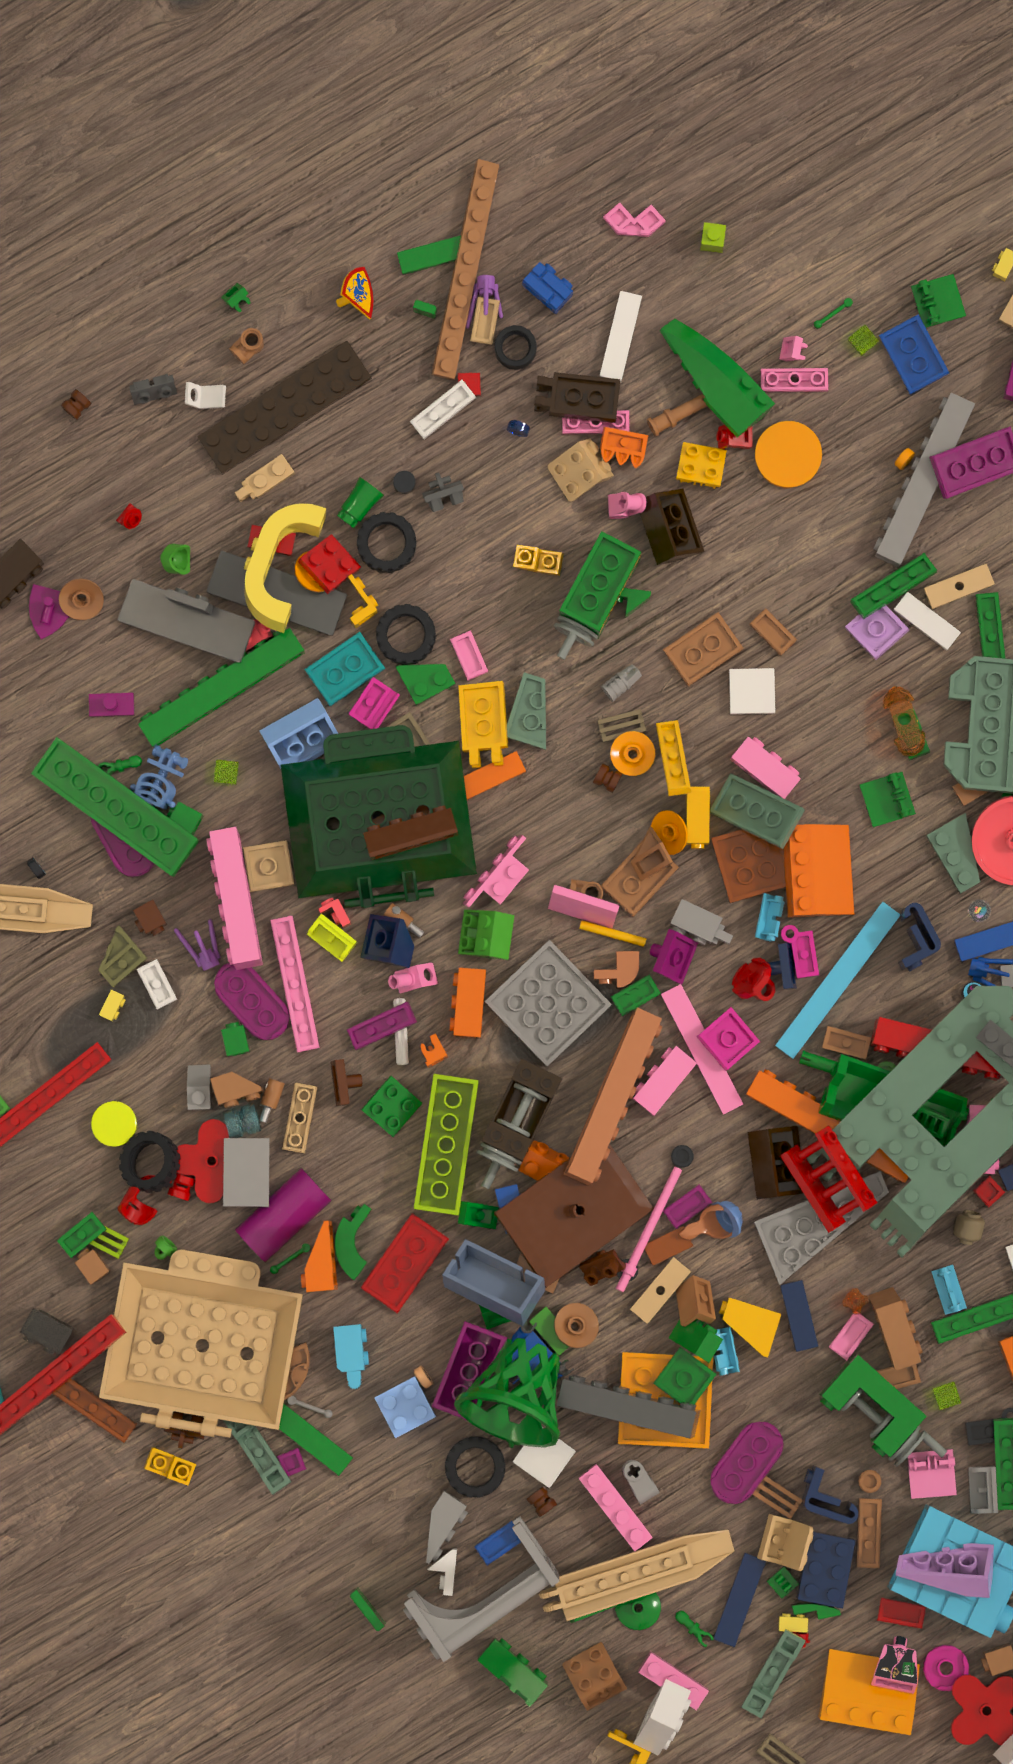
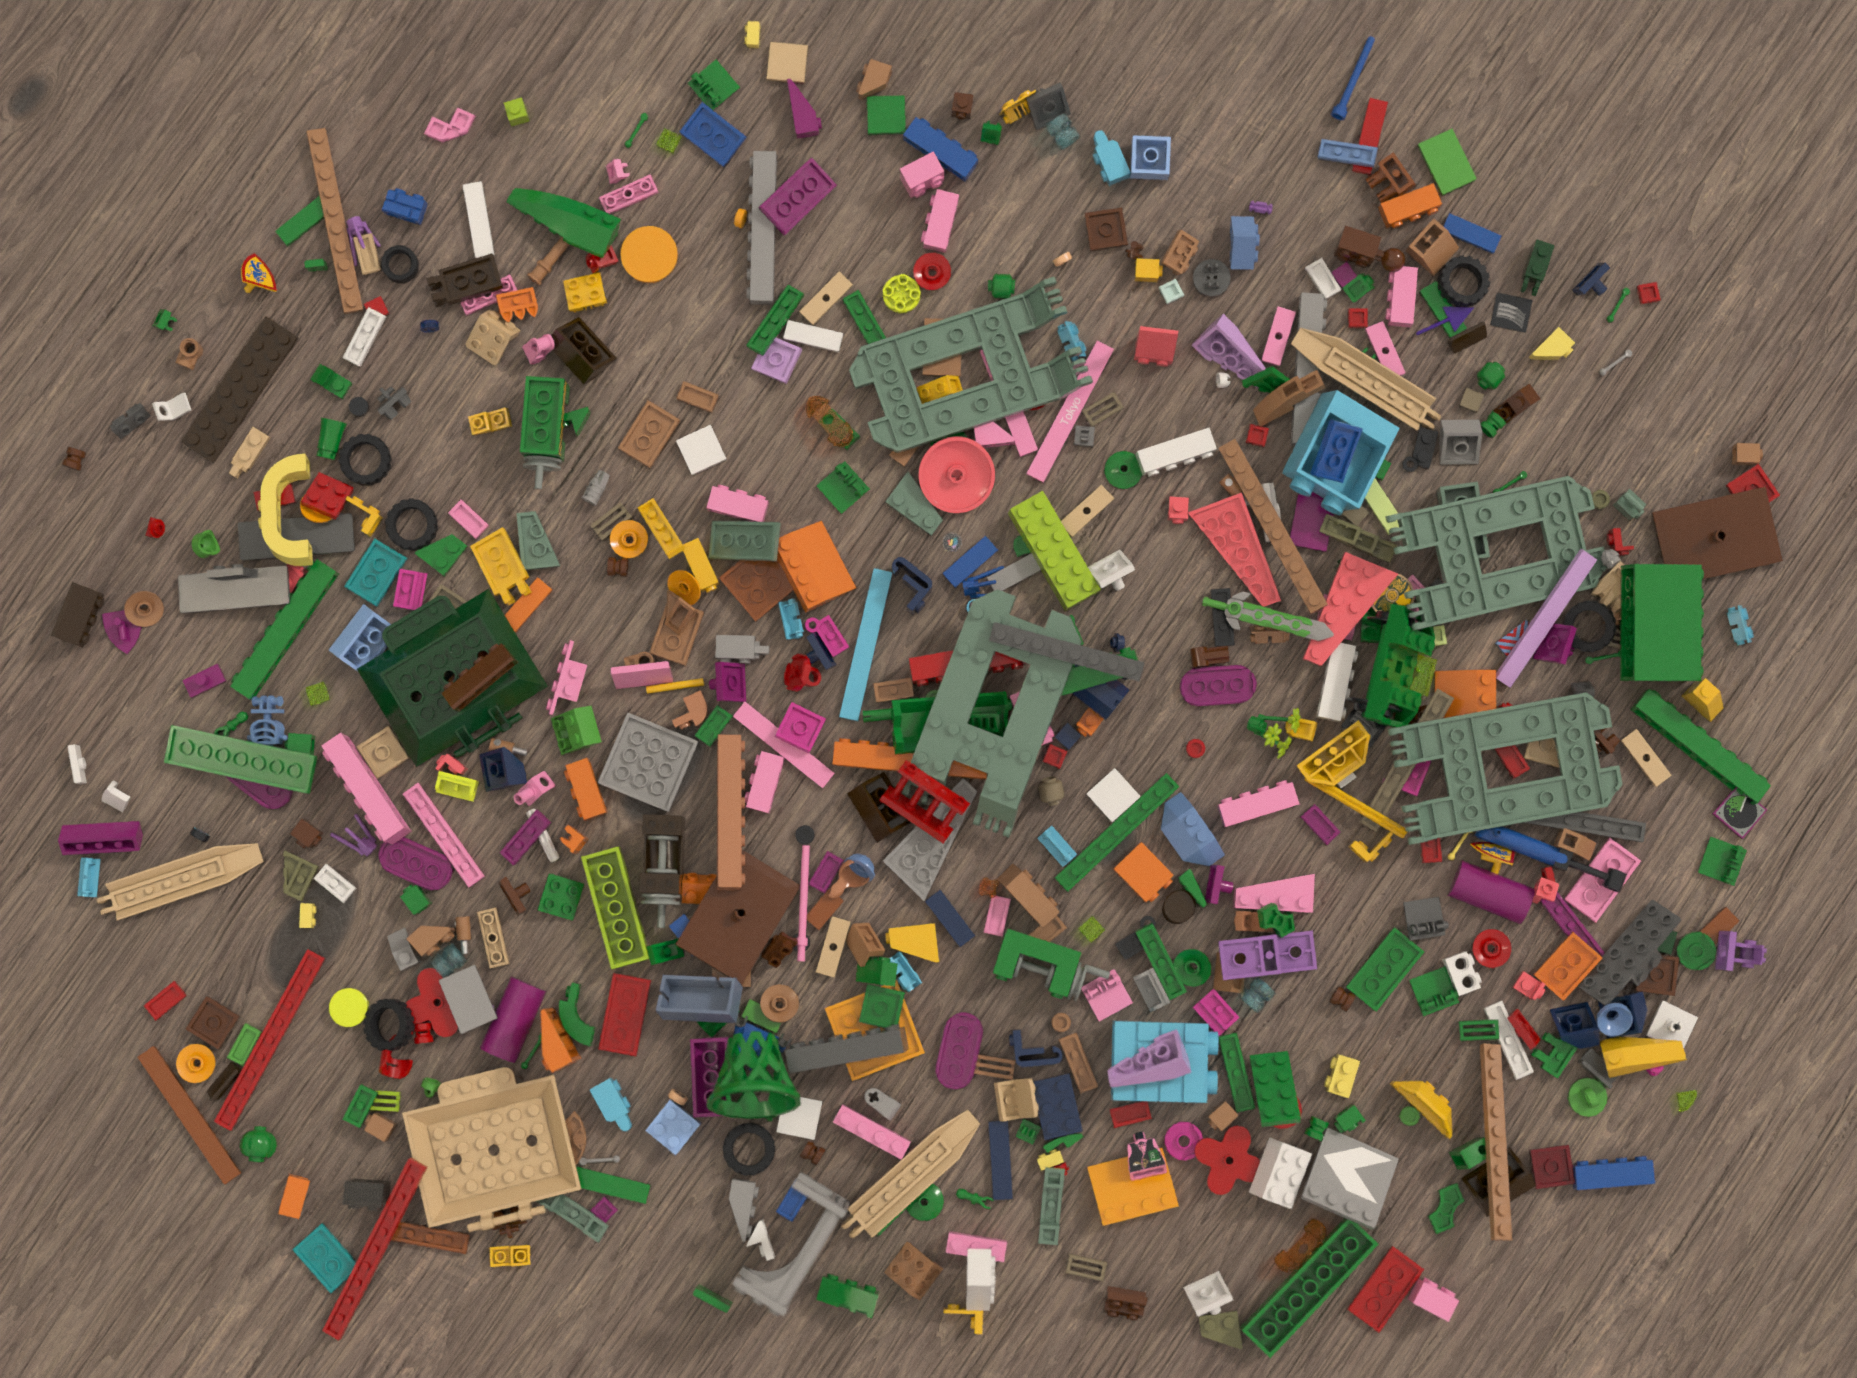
camera: 25 degrees left, 0 degrees up
(386, 441) = (331, 381): none -> green slope

